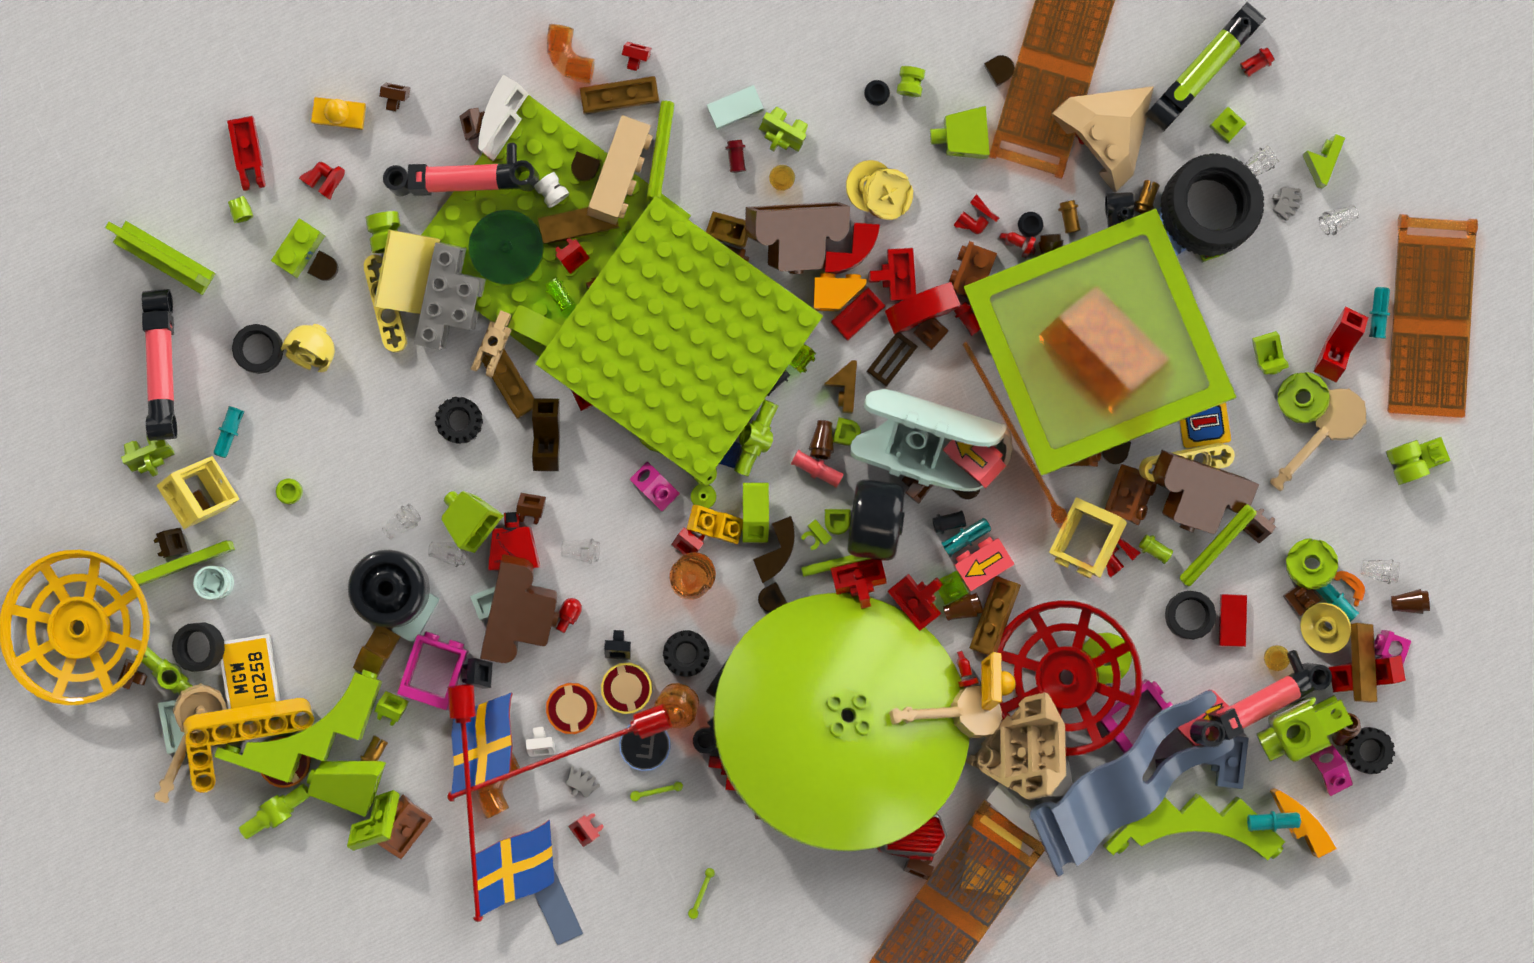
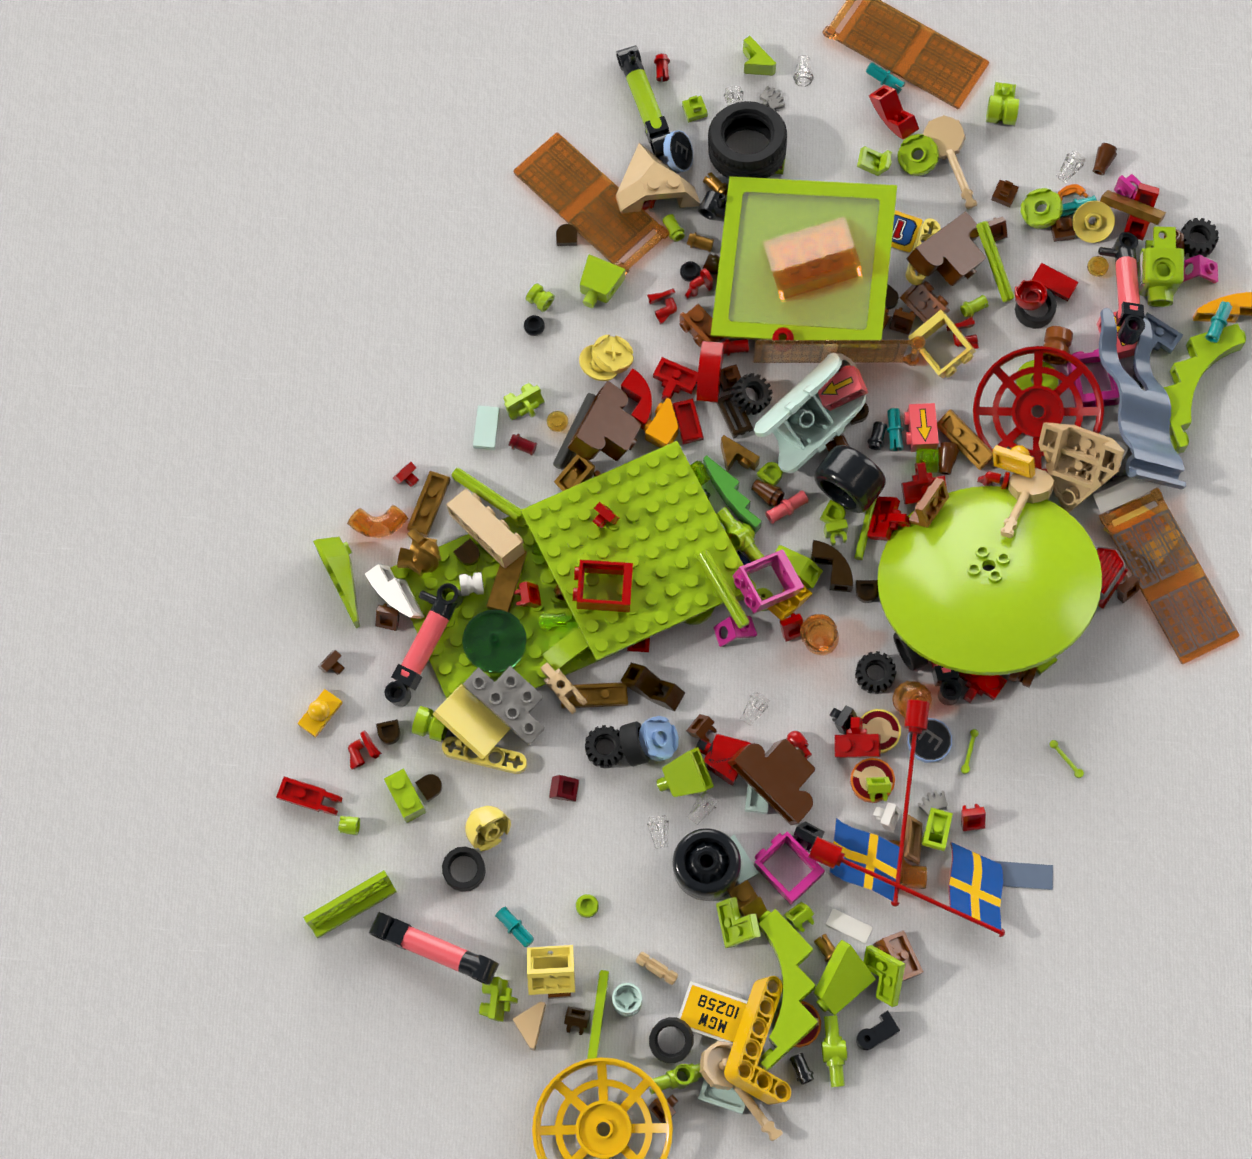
camera: 55 degrees left, 15 degrees down
(139, 500) = (530, 1024): none -> tan slope
(241, 788) = (801, 1068): none -> black pin
(264, 594) = (657, 968): none -> tan axle
(308, 841) = (870, 1038): none -> black leg
(341, 650) = (733, 927): none -> lime tile
(357, 193) = (389, 731): none -> dark brown tile
(395, 402) = (564, 788): none -> dark red slope
(411, 761) = (849, 925): none -> white sticker
(473, 449) = (631, 745): none -> black tyre
(493, 470) = (658, 738): none -> light blue tile
(501, 39) = (339, 567): none -> lime wedge
(528, 781) = (913, 840): none -> medium nougat tile
(549, 800) = (937, 829): none -> lime slope
(552, 122) = (422, 556): none -> pearl gold helmet
(563, 718) = (878, 785): none -> lime tile
(600, 673) = (857, 742): none -> red hinge
(610, 298) = (603, 567): none -> red window
(680, 452) = (723, 589): none -> lime axle
(692, 288) = (604, 516): none -> red tile
(734, 507) = (784, 572): none -> dark pink window
(739, 205) = (564, 453): none -> dark grey axle
(803, 395) = (727, 488): none -> bright green slope
(892, 618) = (930, 504): none -> dark orange bracket
(932, 375) = (758, 386): none -> black tyre
(1003, 368) = (783, 330): none -> red plate
(1071, 178) = (673, 227): none -> lime pin
(1094, 481) = (902, 321): none -> reddish brown tile
(1158, 659) = (1058, 338): none -> dark orange wheel
(1161, 136) = (679, 151): none -> tile
(1194, 604) = (1030, 294): none -> red hair
(1310, 514) = (1005, 193): none -> reddish brown tile

